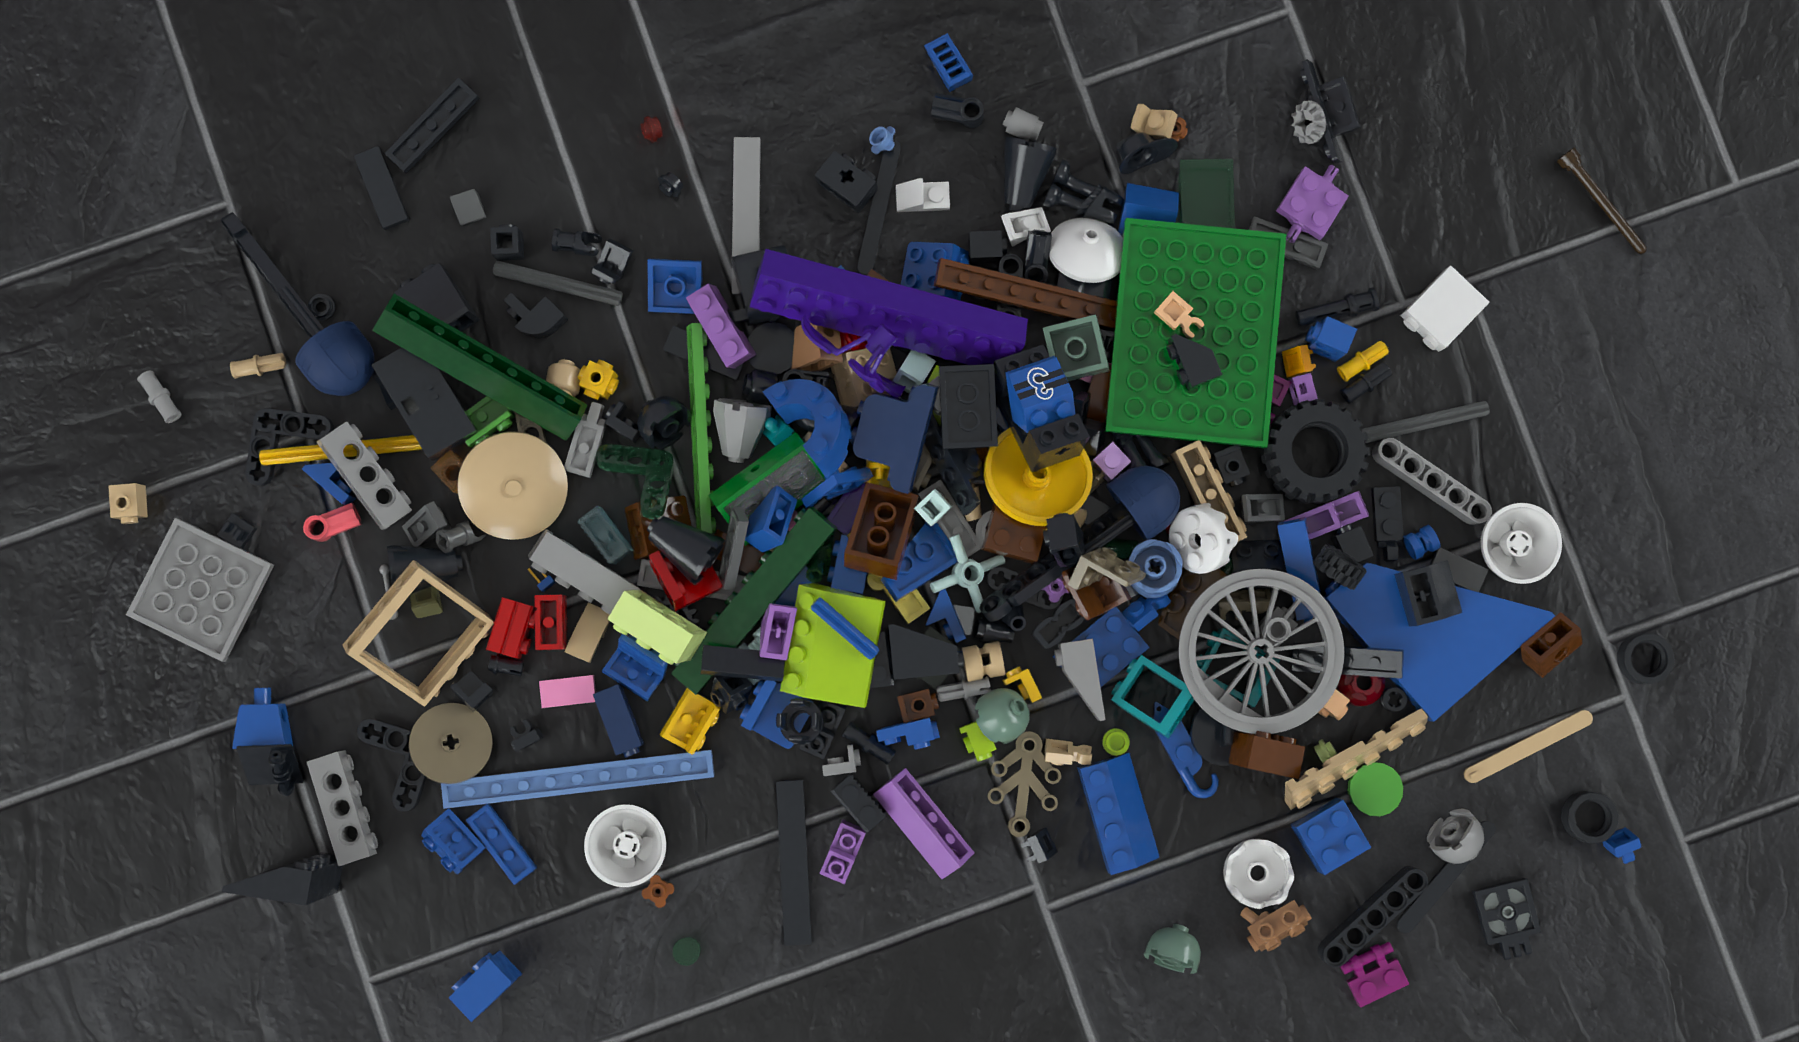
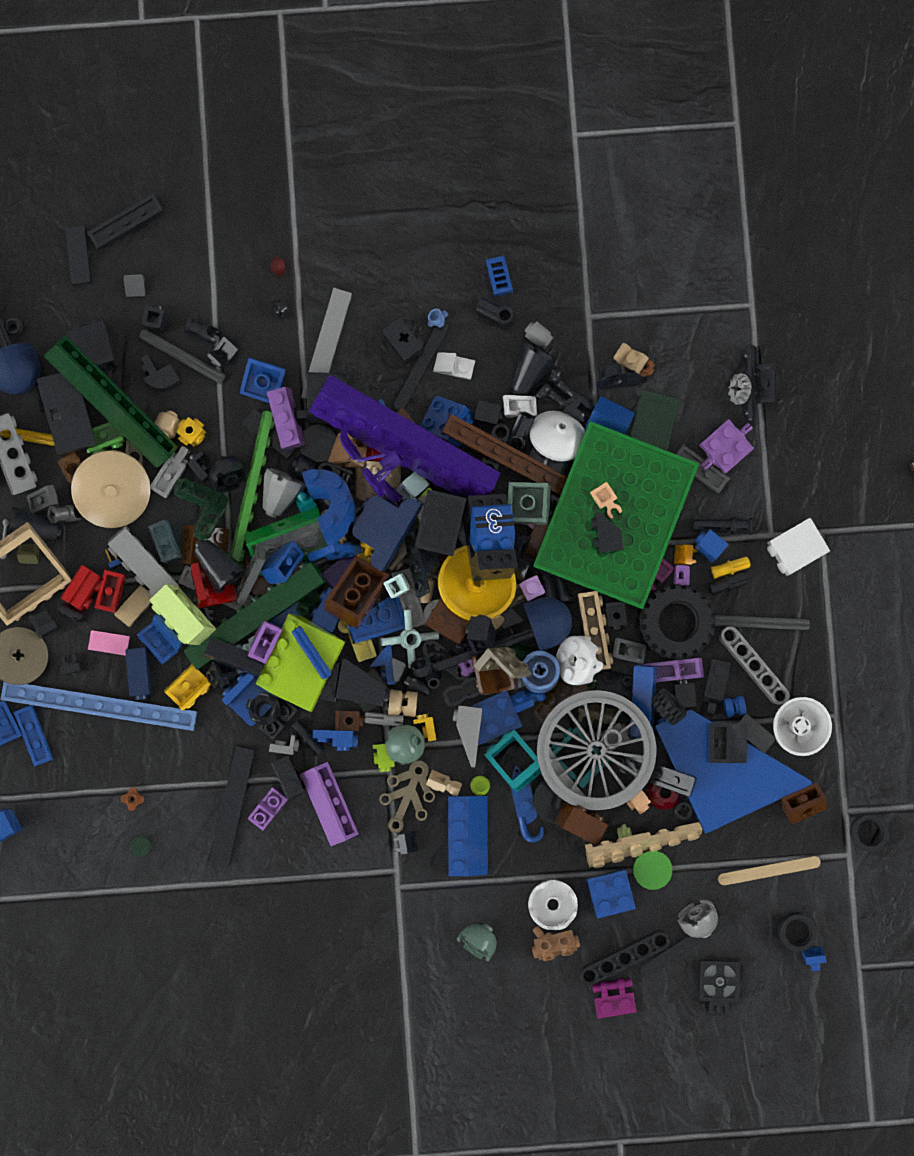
camera: 20 degrees right, 0 degrees up
(612, 853) = (107, 761): white piece -> none

